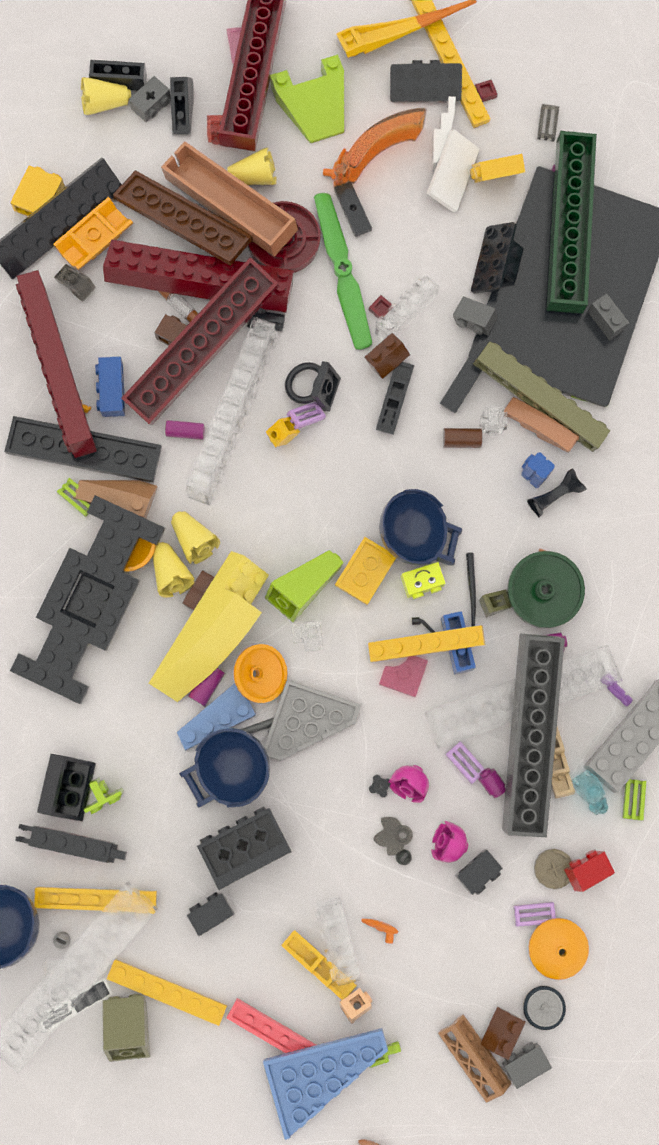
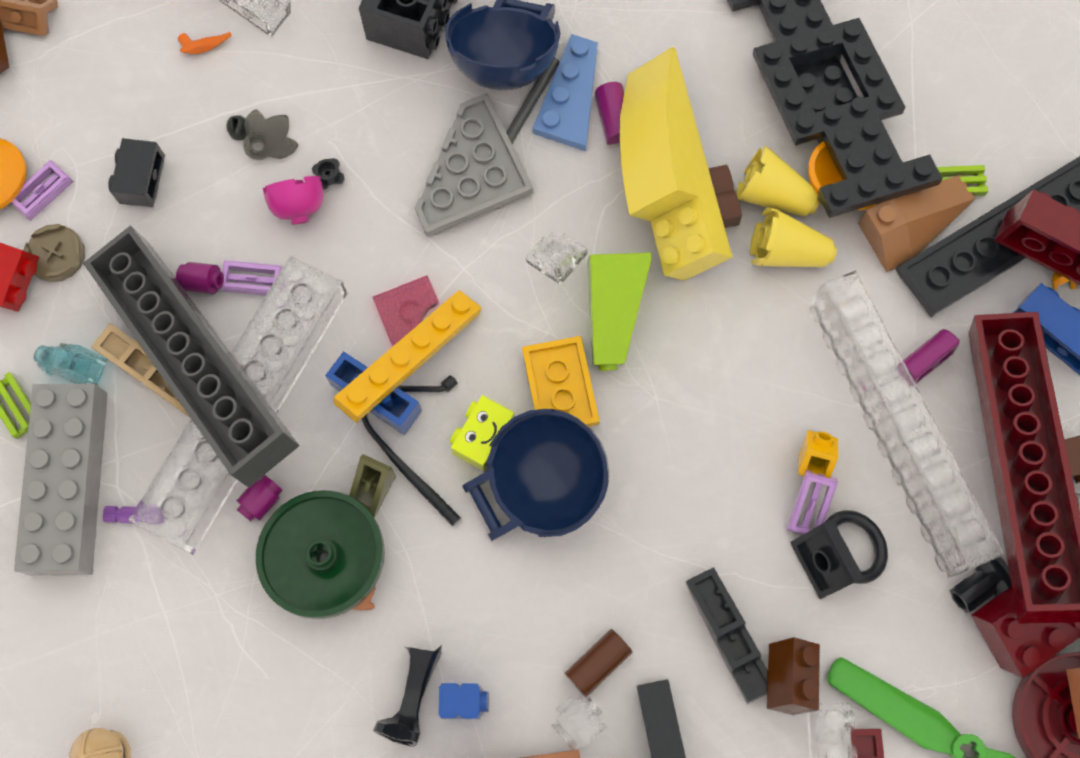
camera: 145 degrees right, 5 degrees down
(269, 669) = (553, 159): light orange dish -> none
(450, 842) = (193, 174): dark pink cylinder -> none

